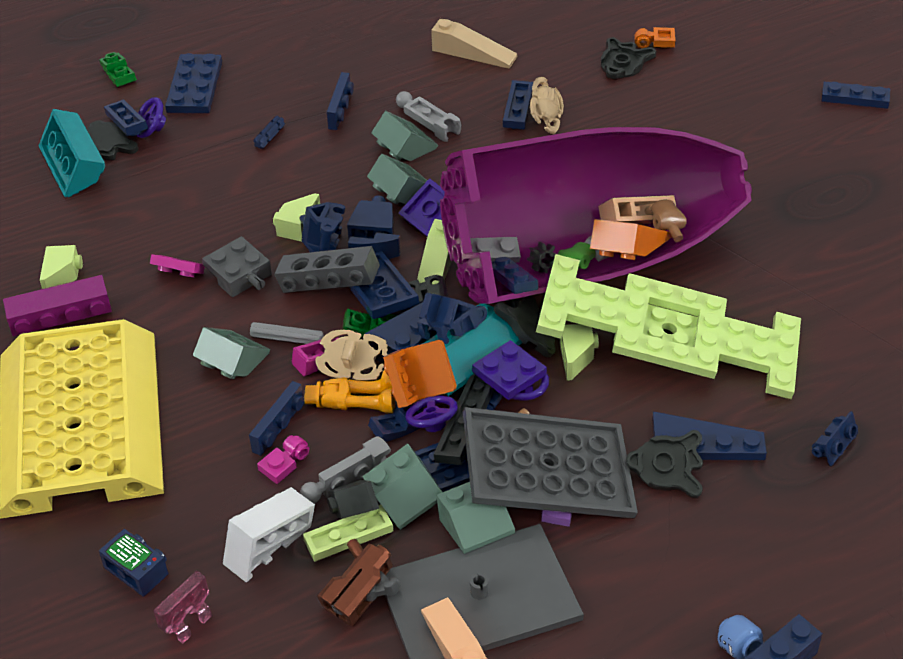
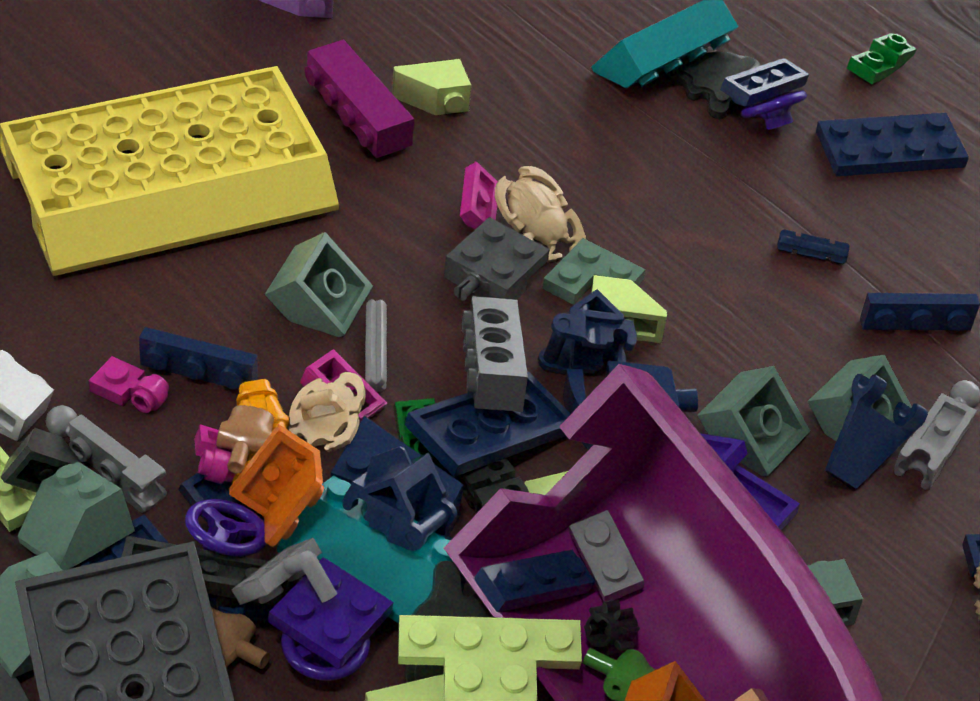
camera: 70 degrees right, 0 degrees up
(201, 237) = (538, 209): none -> tan shield
(254, 227) = (576, 271): none -> sand green plate
(357, 415) = (213, 458): none -> dark pink plate
(364, 389) = (244, 434): none -> medium nougat piece
(424, 129) = (868, 435): none -> dark blue flag
(479, 380) = (288, 566): none -> light grey plate

